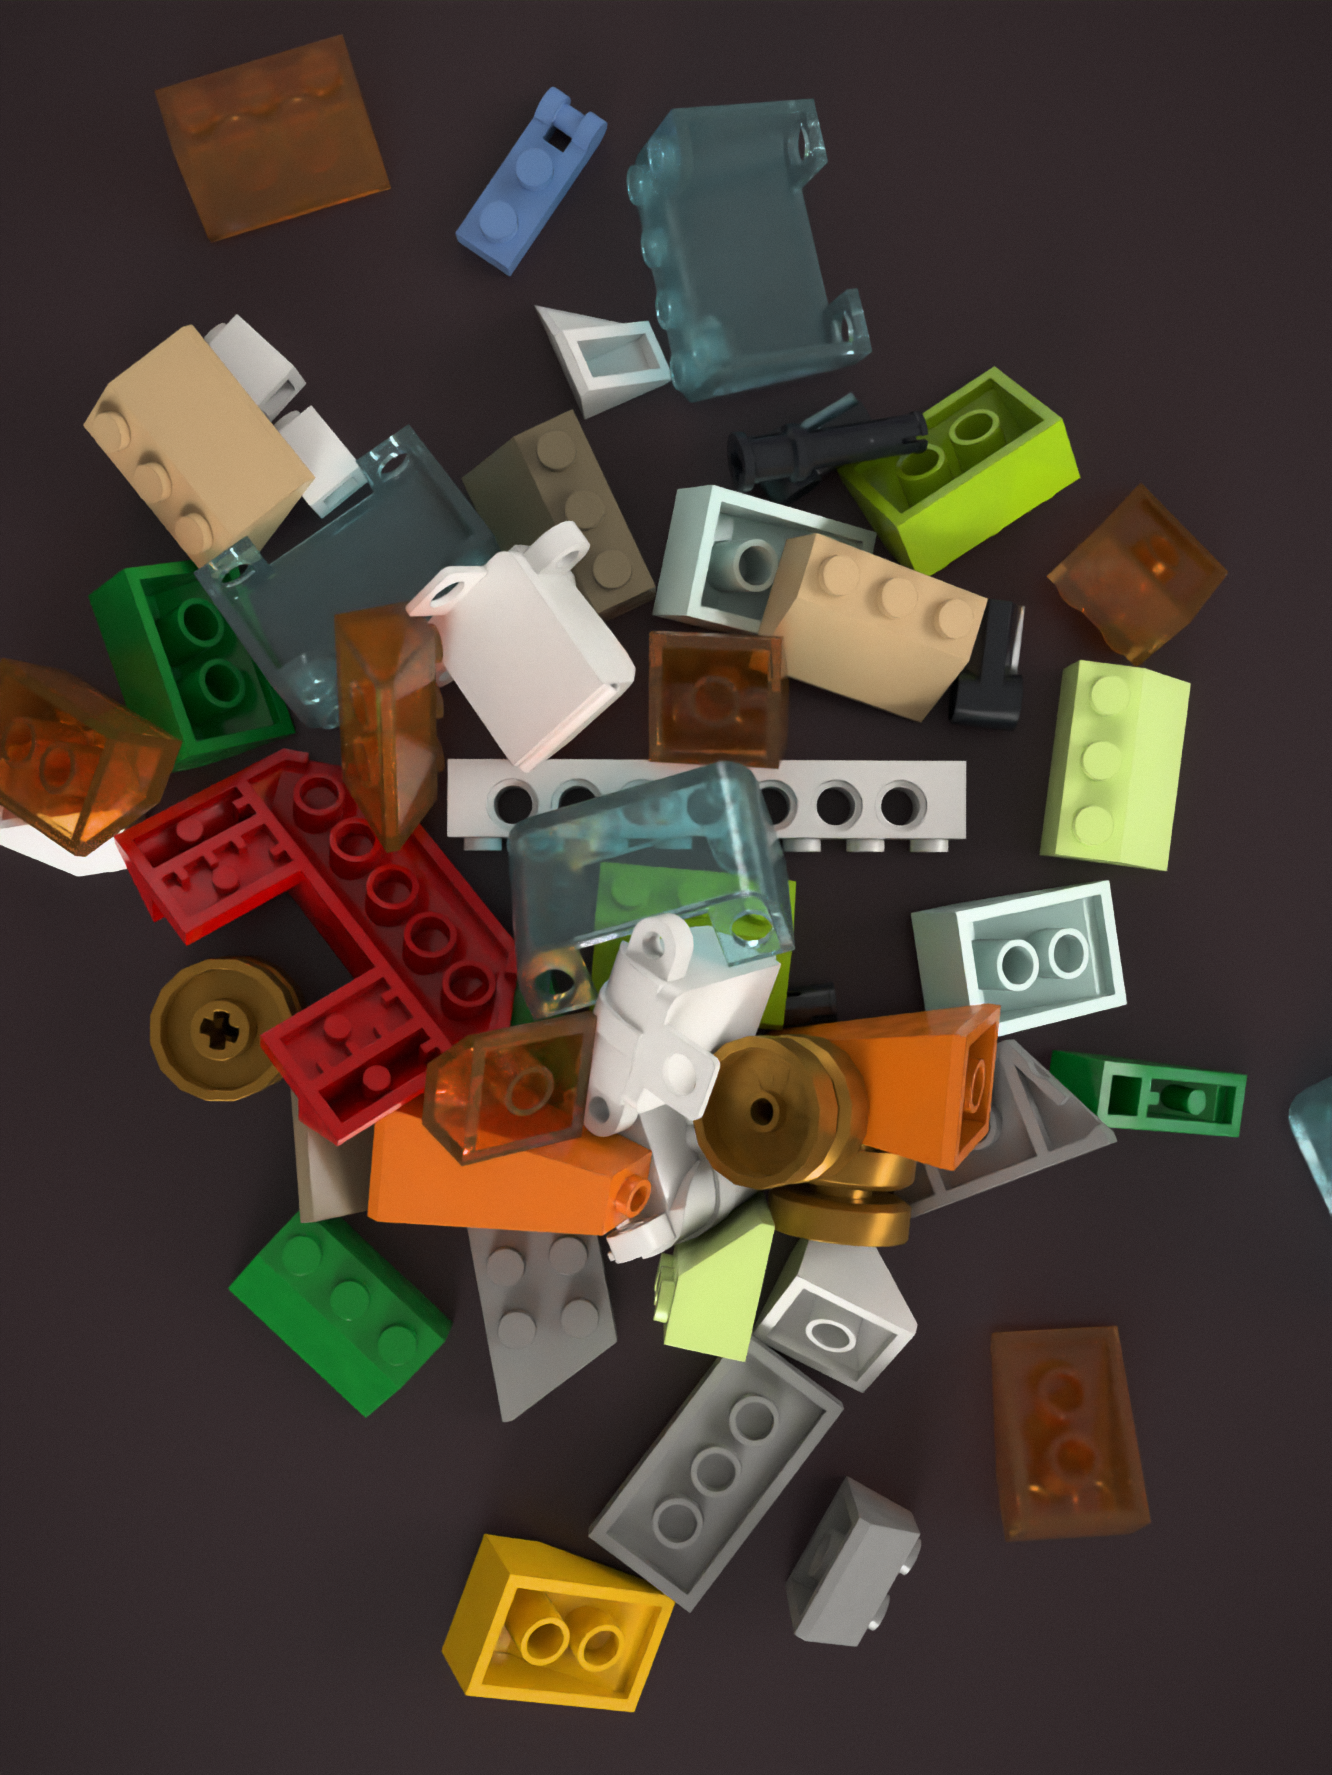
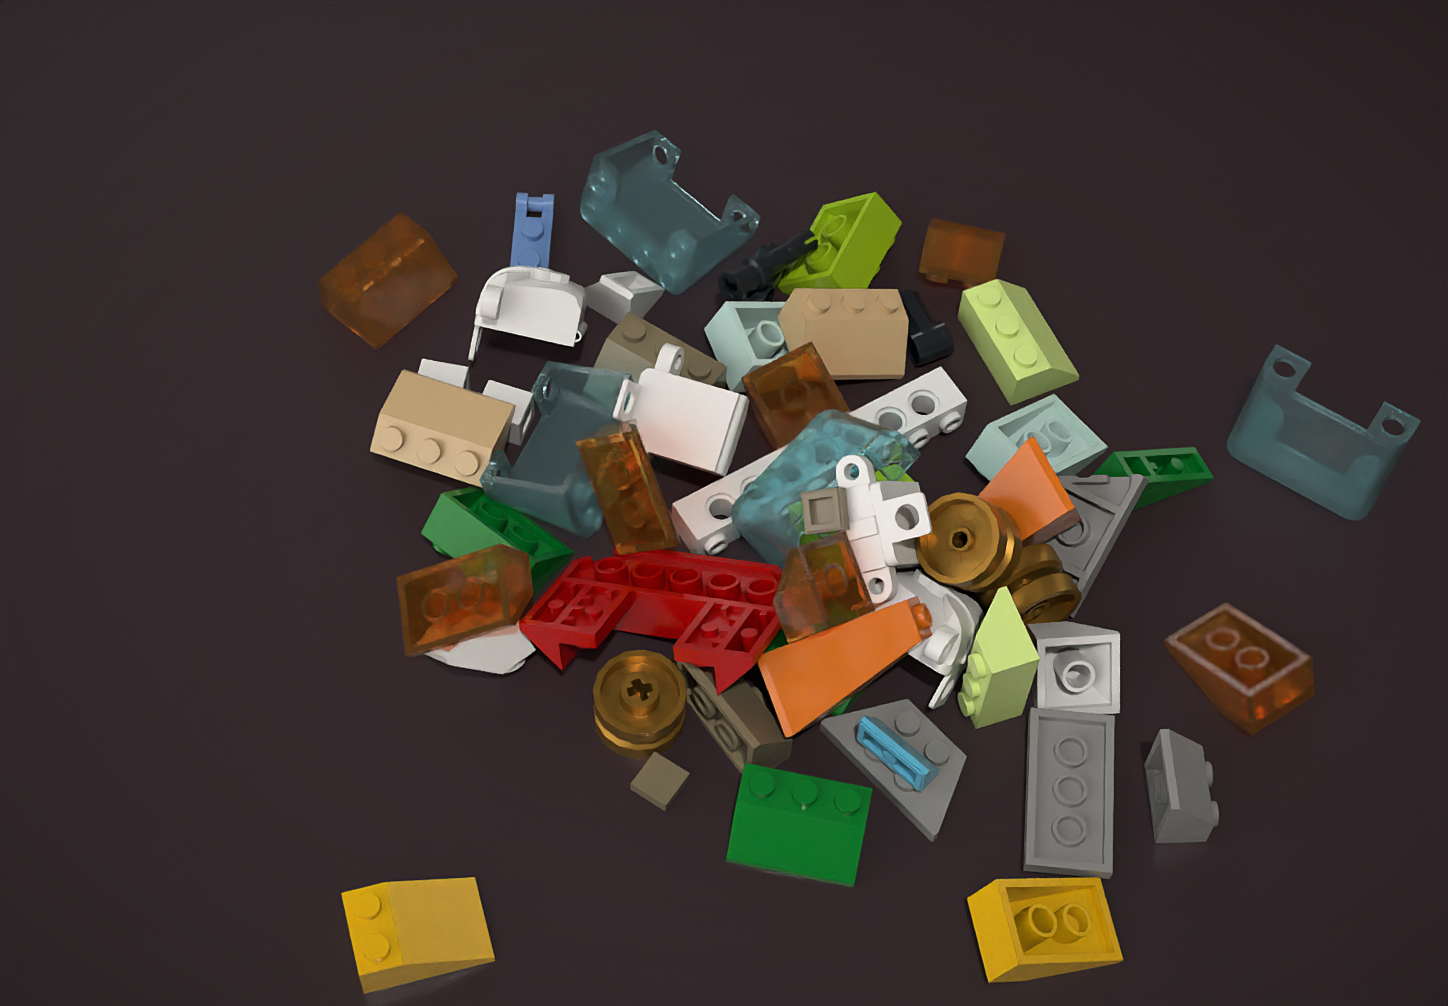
camera: 35 degrees left, 30 degrees down
(206, 1136) = (660, 781): none -> dark tan tile
(433, 324) = (531, 304): none -> white piece
(520, 1301) = (896, 753): none -> medium azure slope
(586, 972) = (825, 511): none -> dark tan tile

